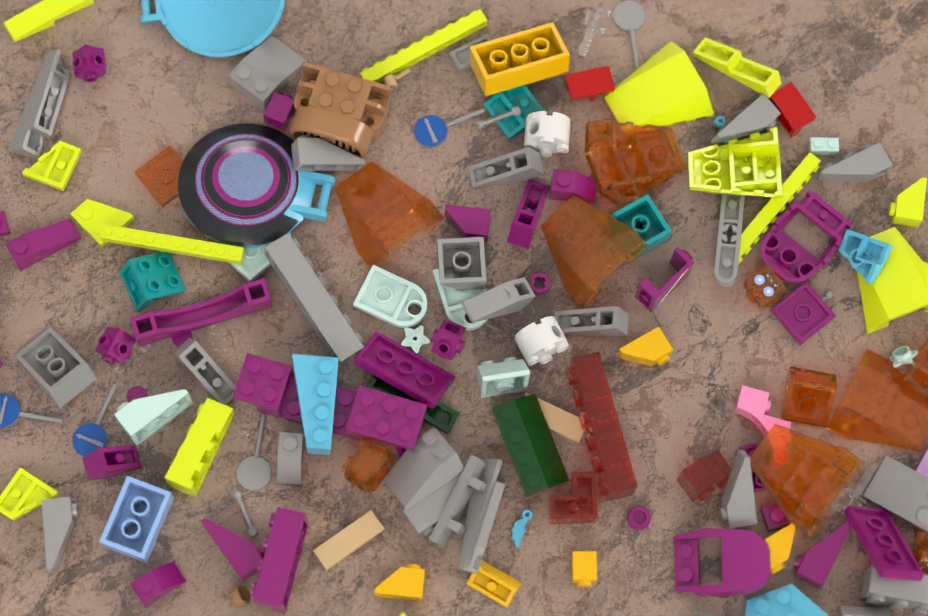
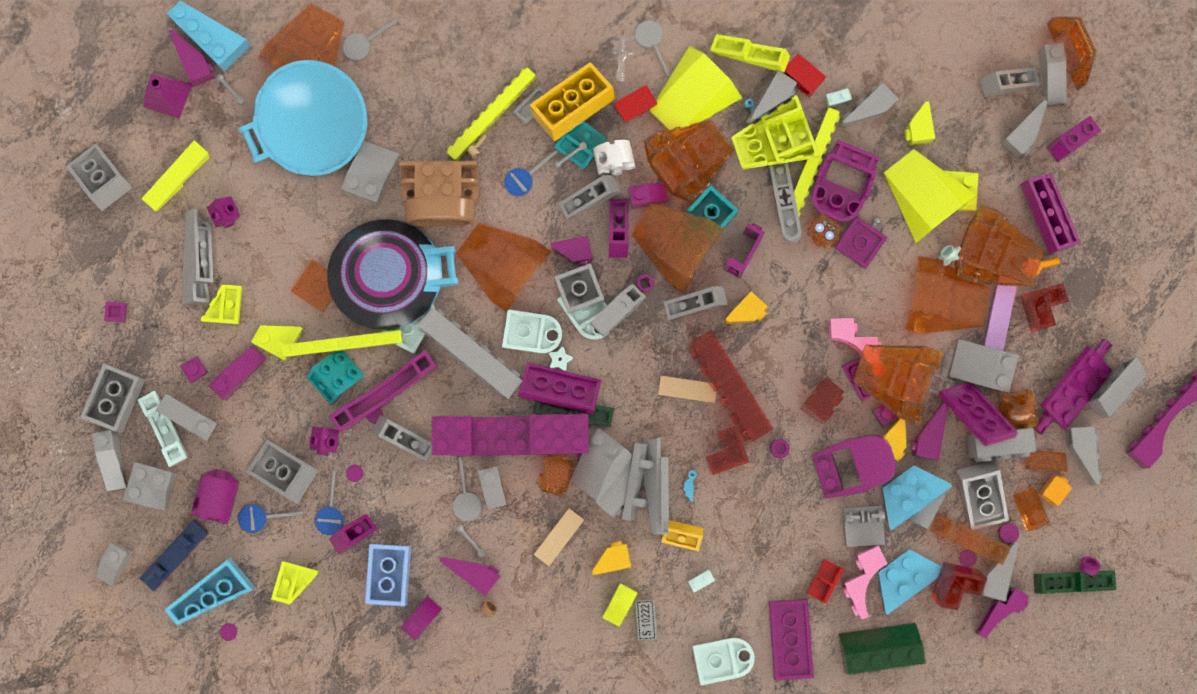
camera: 15 degrees left, 10 degrees up
(58, 526) = (327, 596): light grey slope -> none
(149, 414) = (367, 491): light aqua slope -> none
(199, 447) = (418, 502): neon yellow wedge -> none
(279, 111) = (391, 203): magenta brick -> none
(280, 559) = (511, 572): magenta slope -> none
(316, 396) = (497, 430): medium azure wedge -> none
(320, 155) = (437, 232): light grey slope -> none
(448, 339) = (587, 353): magenta brick -> none
(502, 377) = (639, 370): light aqua slope -> none
(530, 444) = (678, 418): dark green slope -> none
(541, 341) = (661, 332): white brick -> none
(584, 568) = (749, 503): yellow brick -> none
(738, 496) = (853, 409): light grey slope -> none
(808, 396) = (884, 310): clear orange slope -> none
(865, 254) = (897, 180): medium azure slope -> none

